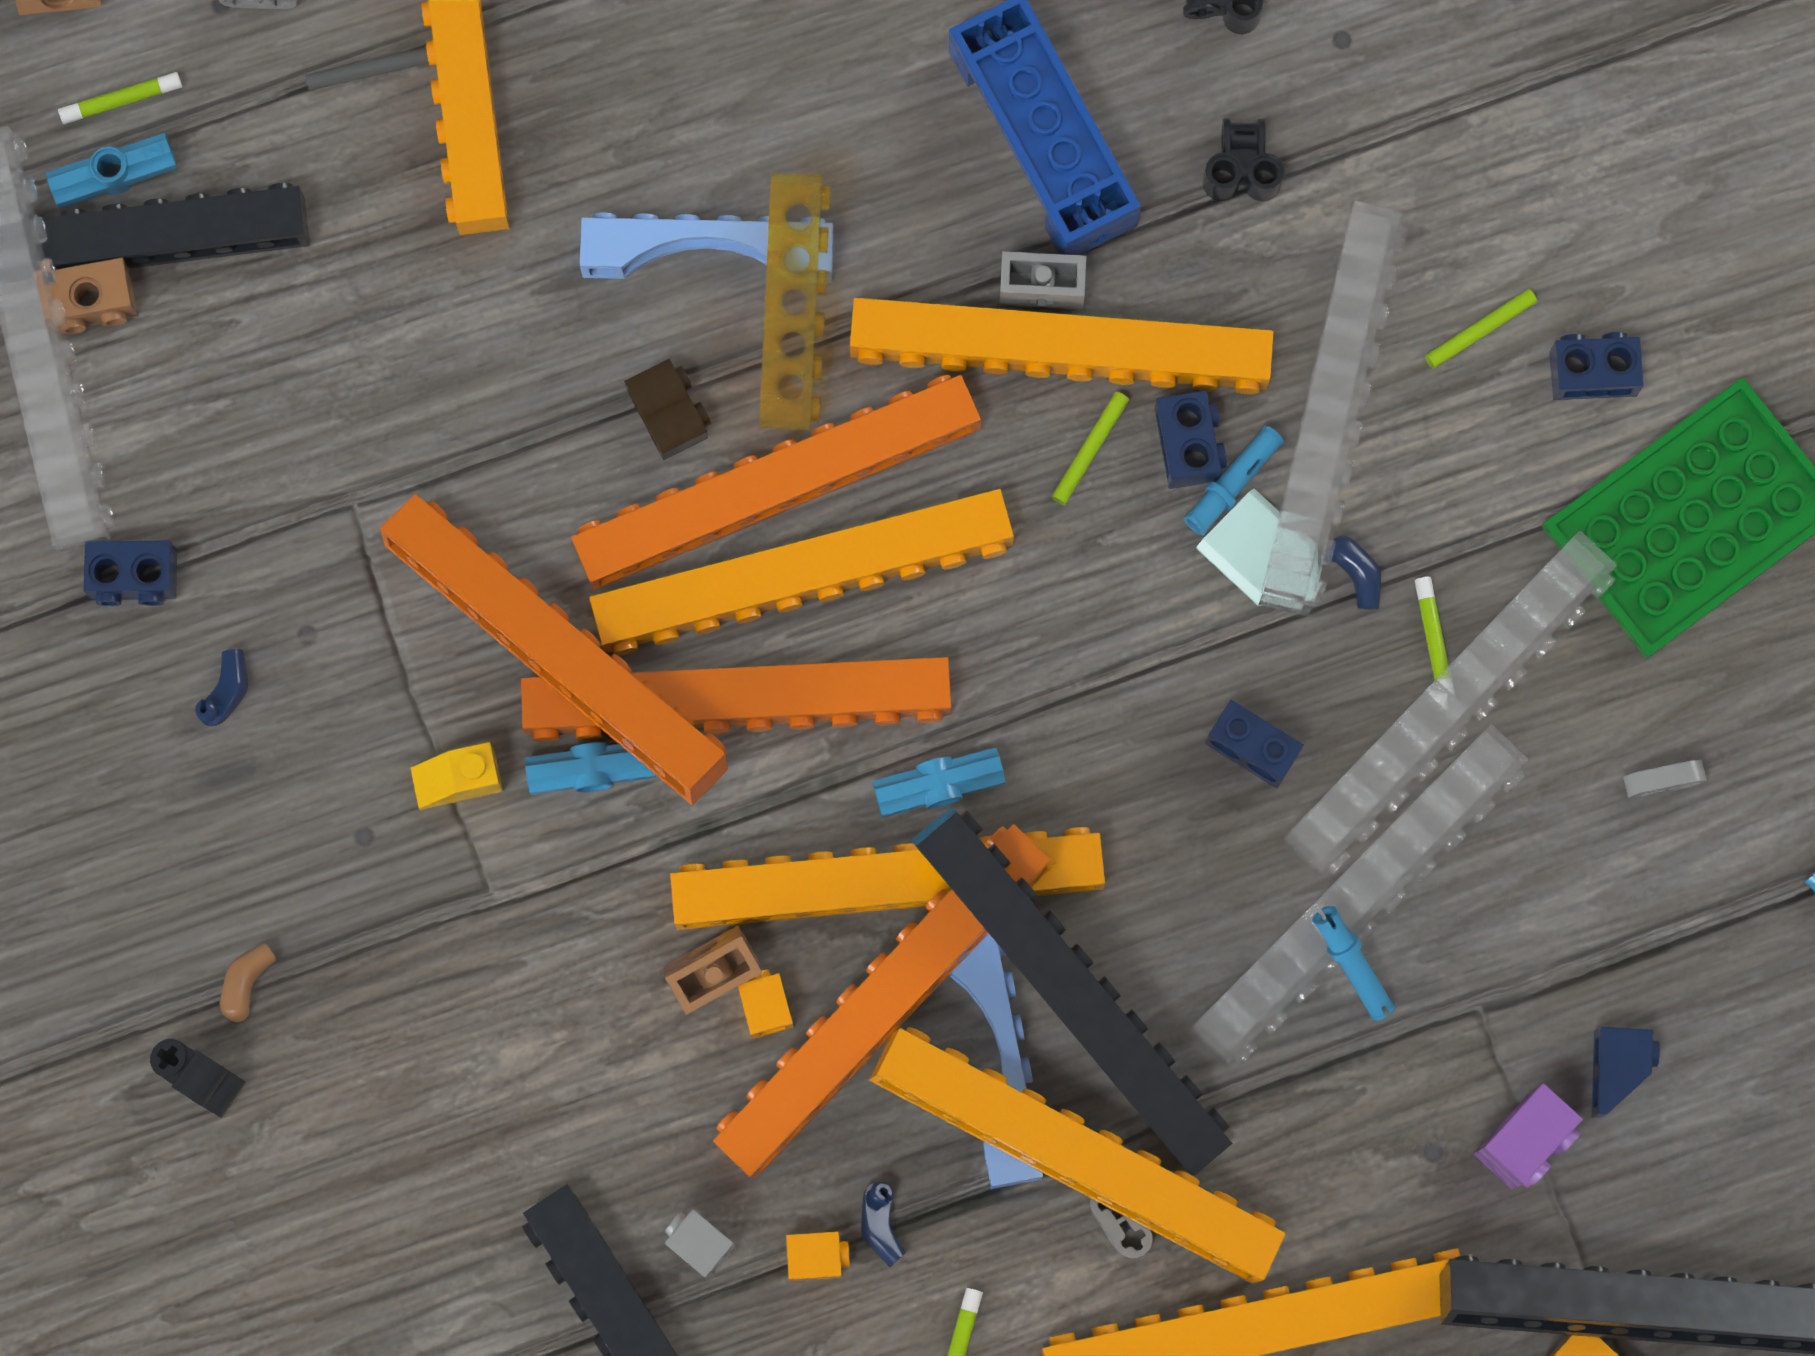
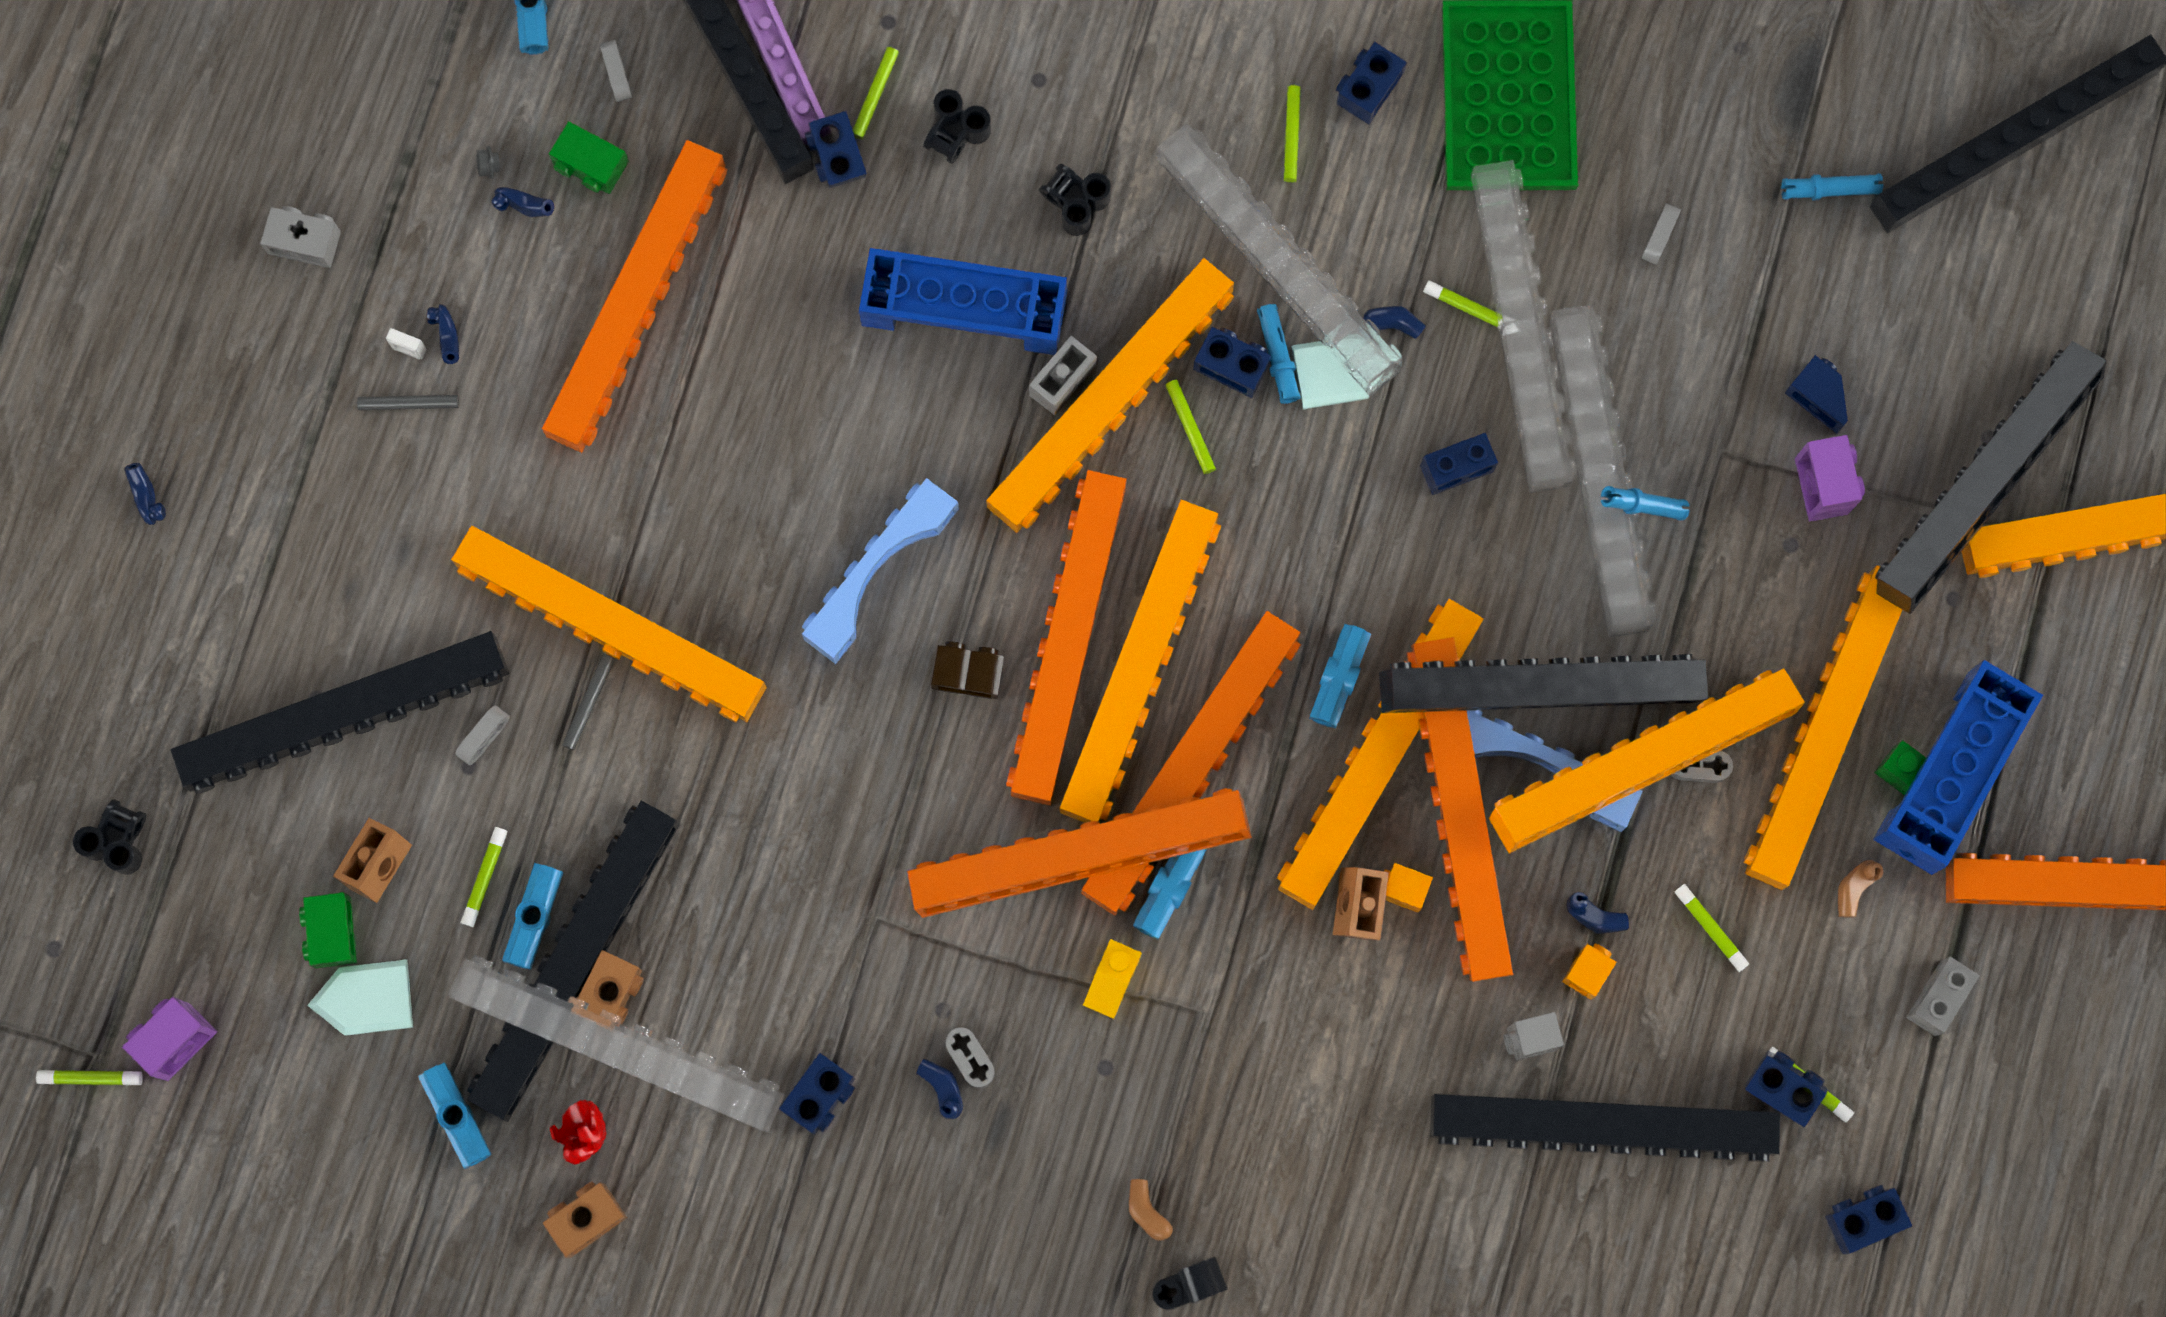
camera: 55 degrees left, 0 degrees up
(285, 698) = (976, 1053): none -> light grey beam
(786, 193) = (891, 492): clear yellow brick -> none

